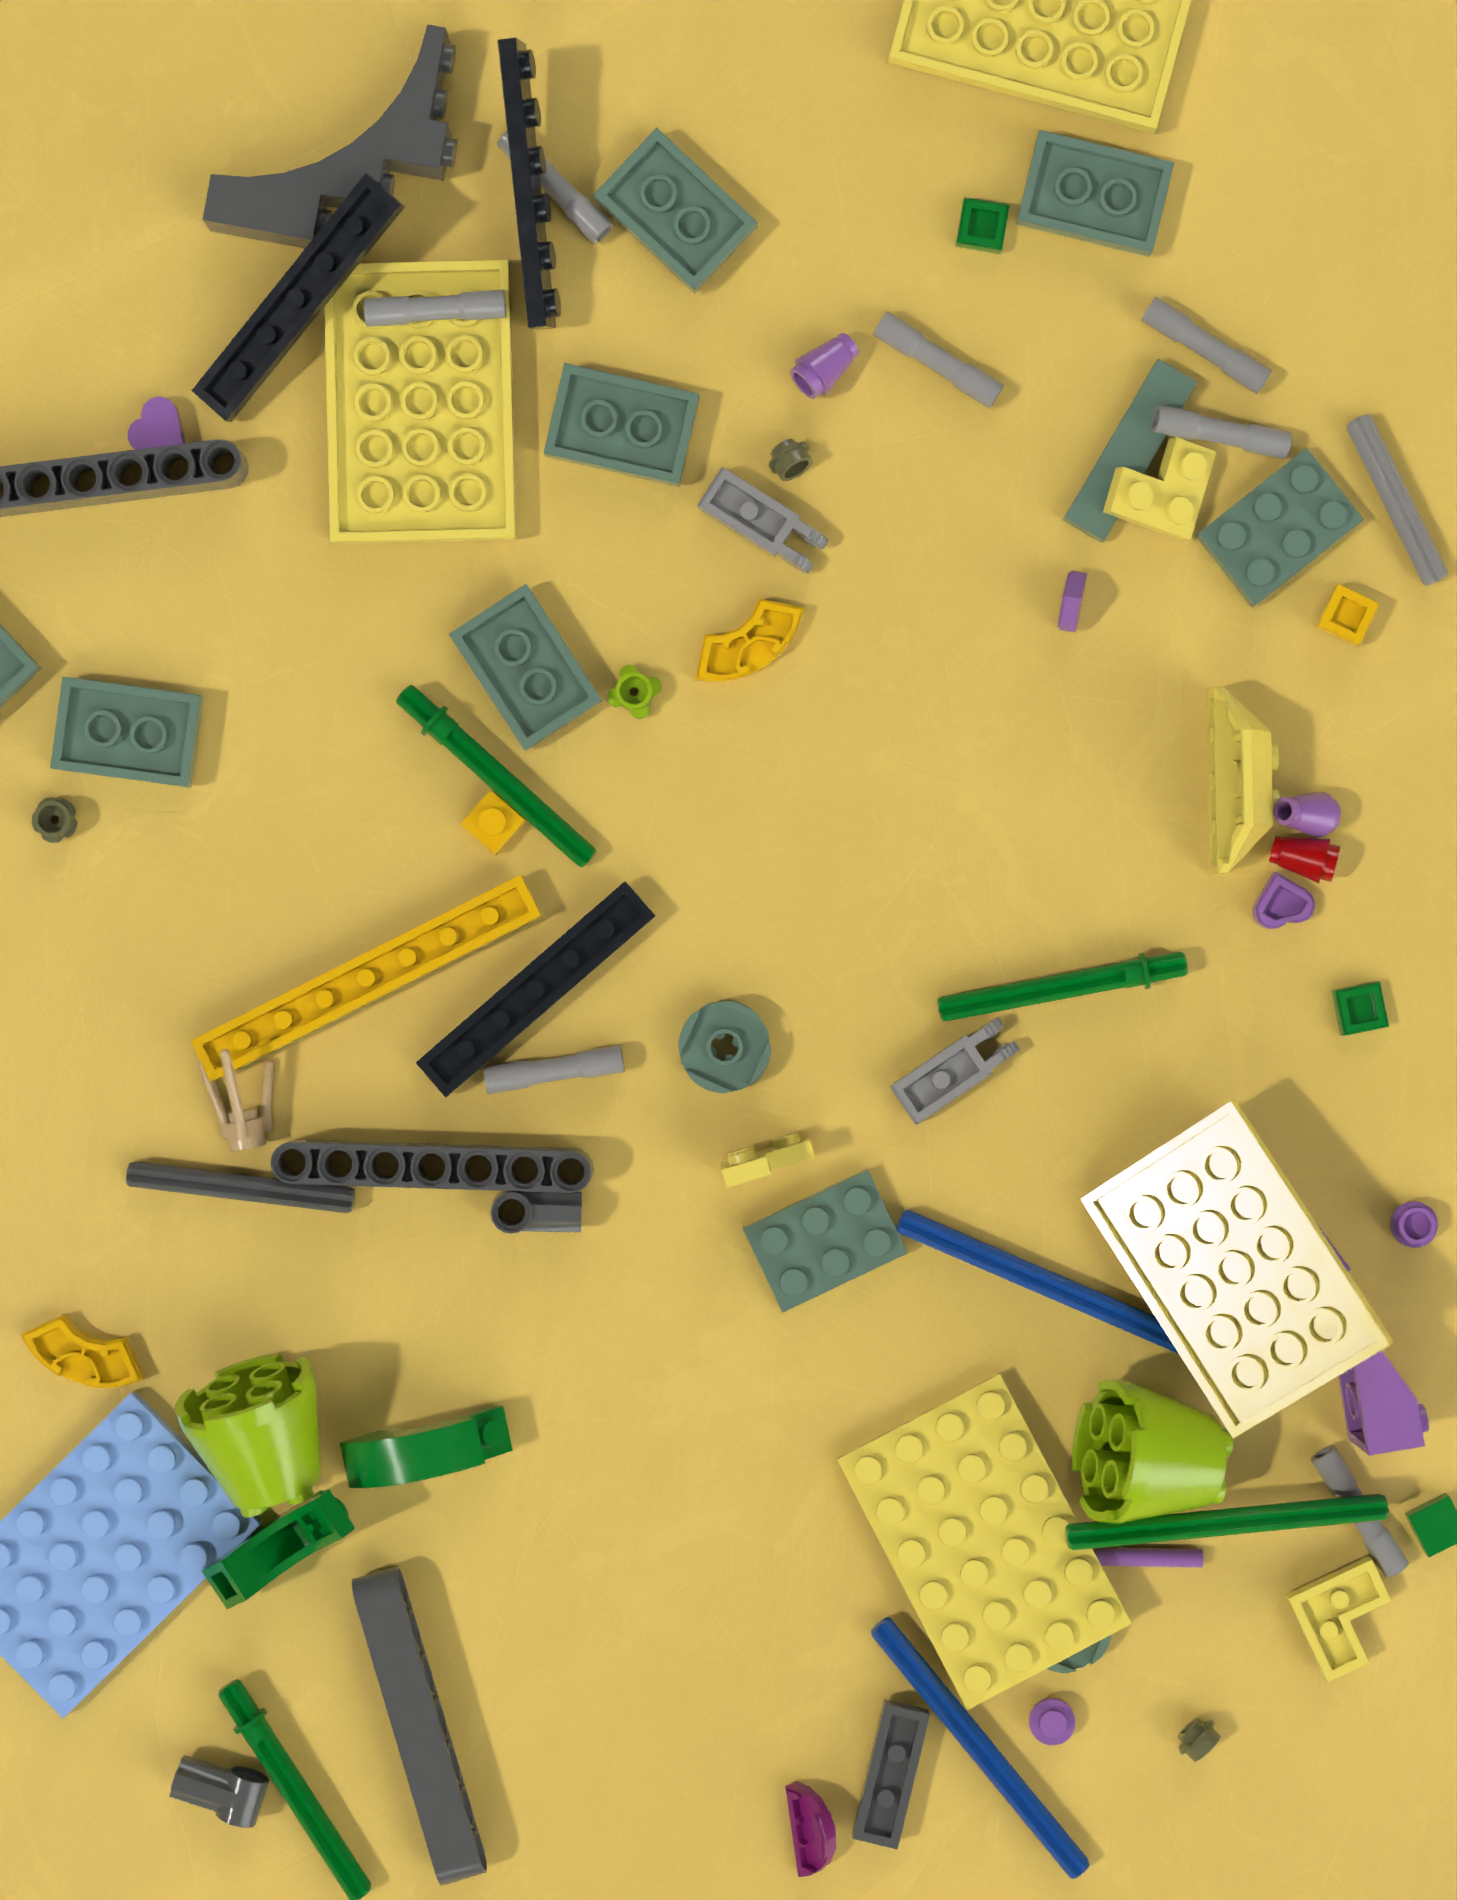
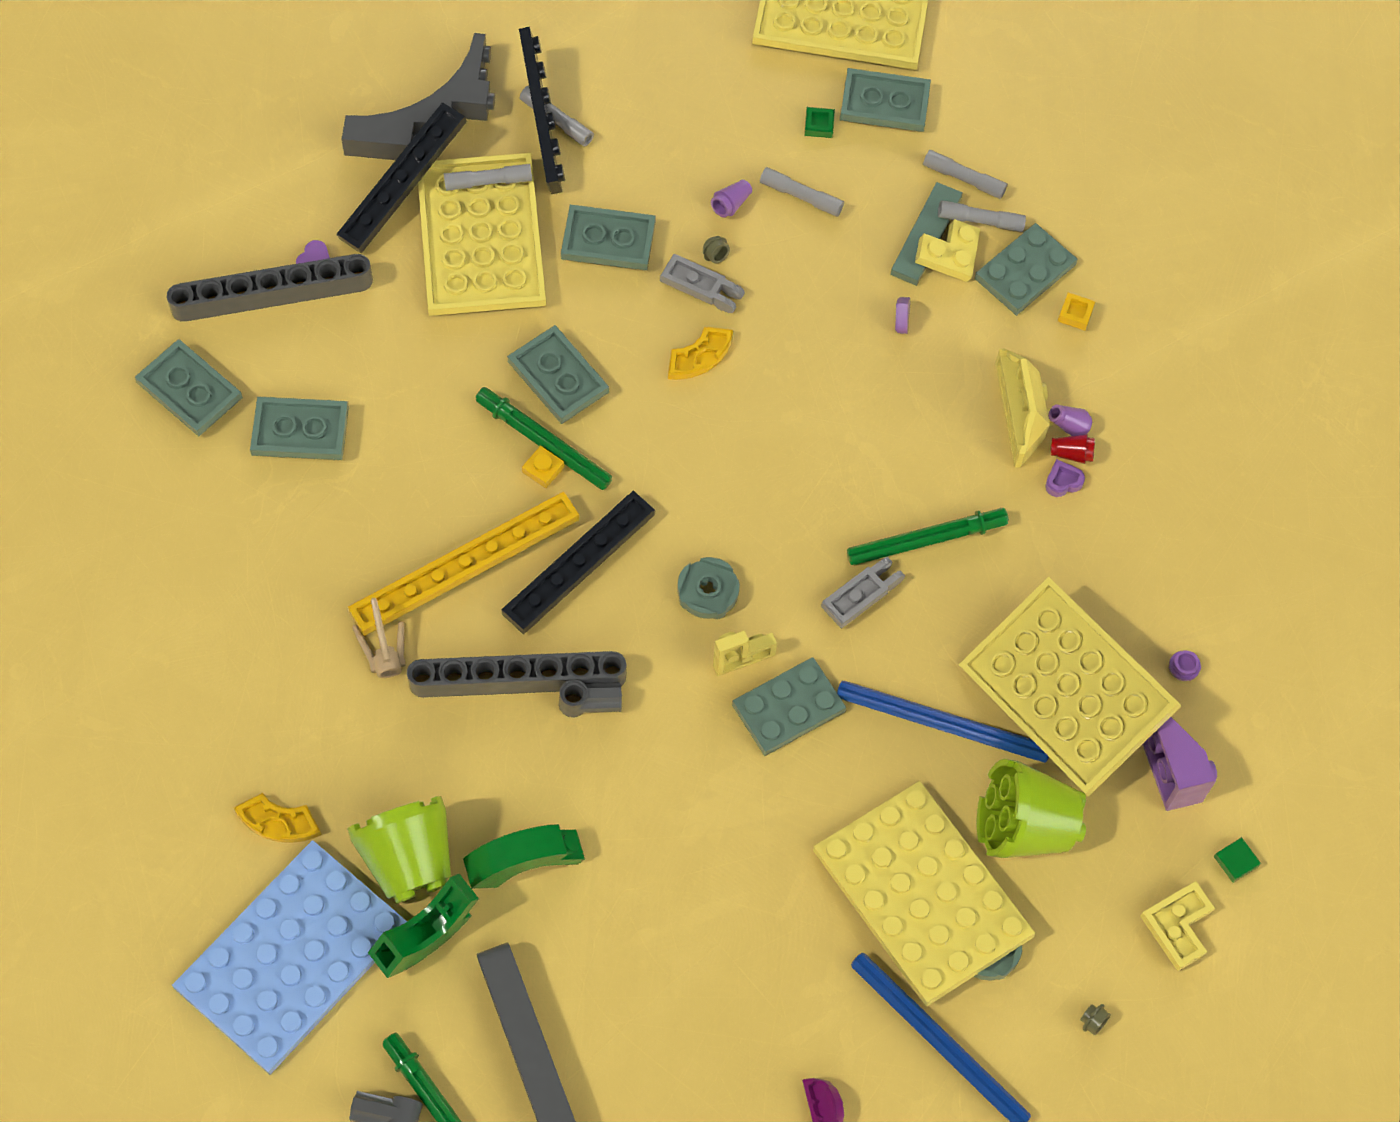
camera: 10 degrees left, 25 degrees down
(42, 819) = (252, 476): olive plate -> none
(239, 1187) = (384, 701): dark grey axle -> none
(583, 1064) = (613, 607): light grey piece -> none
(632, 679) = (629, 377): lime plate -> none
(675, 210) = (631, 123): sand green plate -> none
(890, 1774) = (877, 1062): dark grey plate -> none
(1052, 1721) = (989, 1015): medium lavender plate -> none
(1149, 1557) = (1044, 897): medium lavender bar -> none
(1228, 1522) = (1089, 856): green axle -> none
(1360, 1008) = (1125, 538): green tile -> none
(1374, 1534) = (1167, 837): light grey piece -> none
(1397, 499) = (1096, 248): light grey axle -> none

